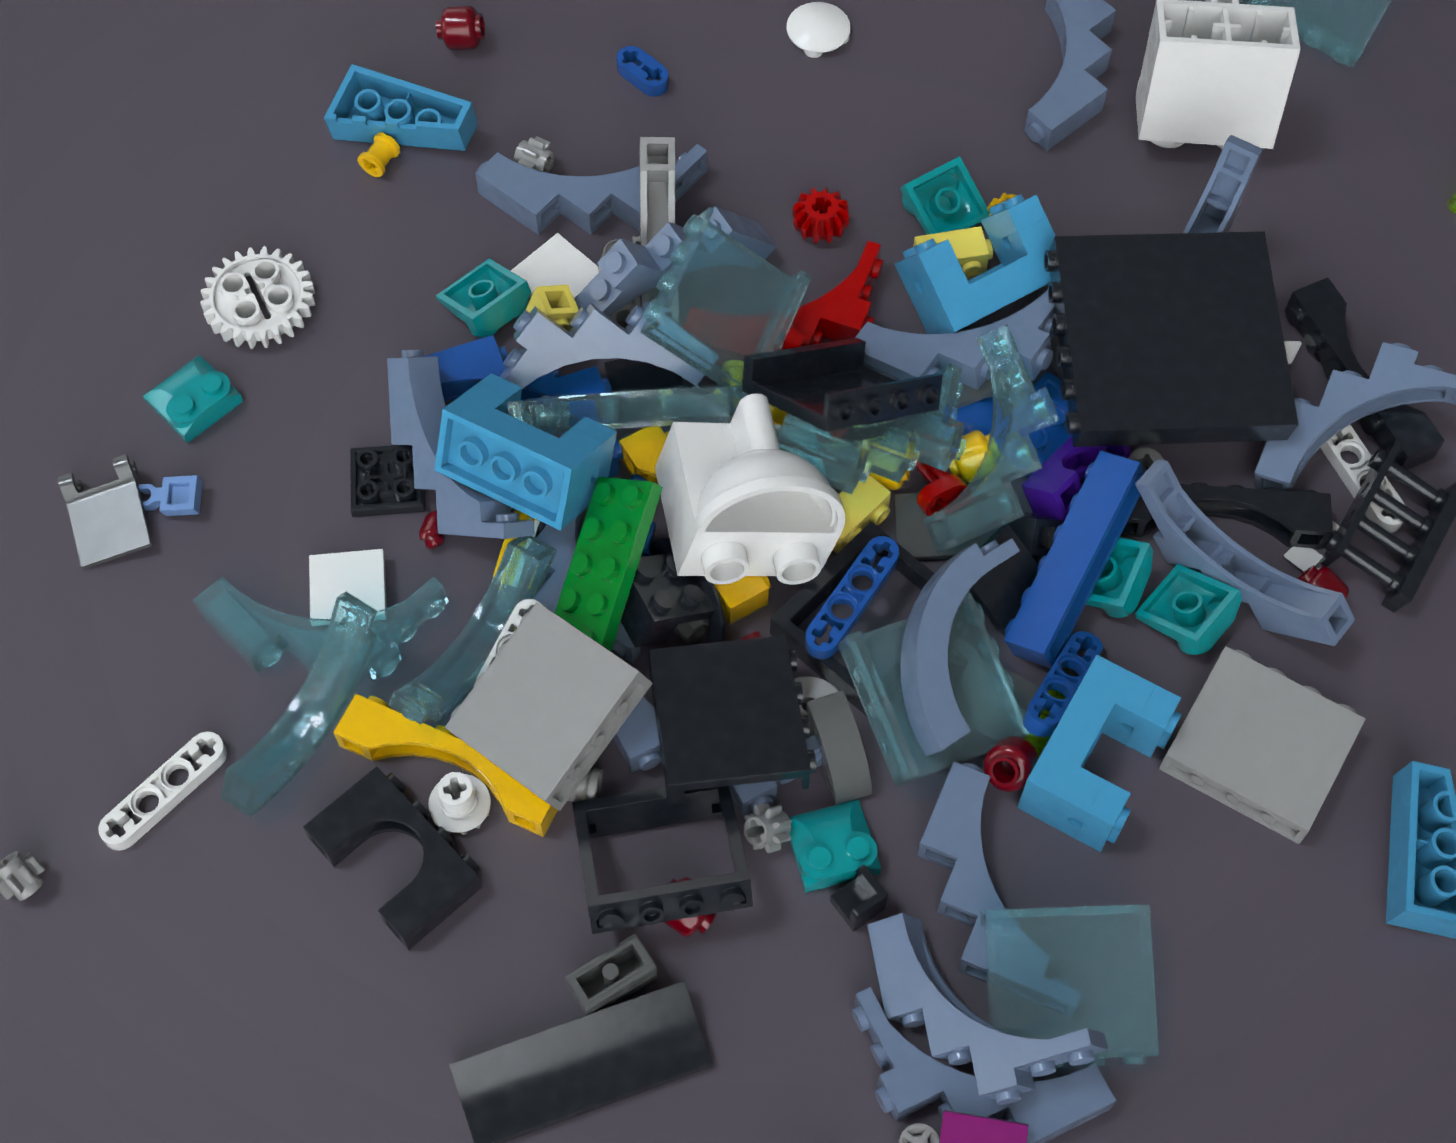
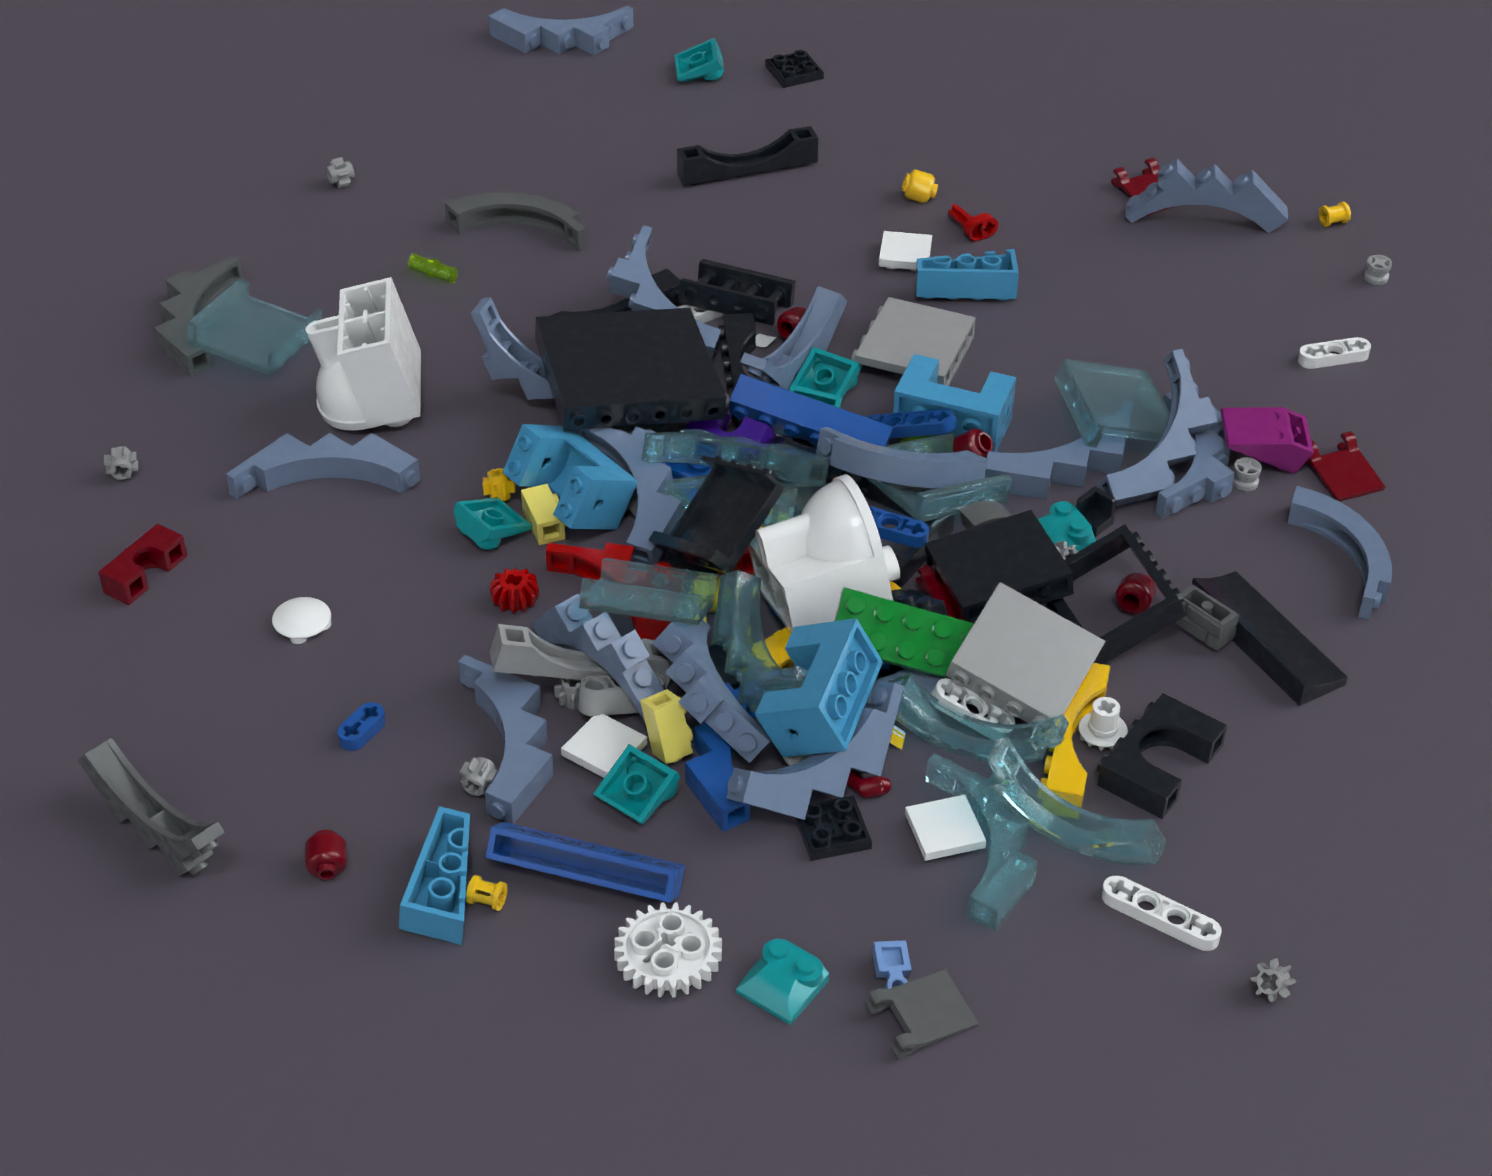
camera: 100 degrees left, 20 degrees down
(384, 235) = (585, 861): none -> blue brick

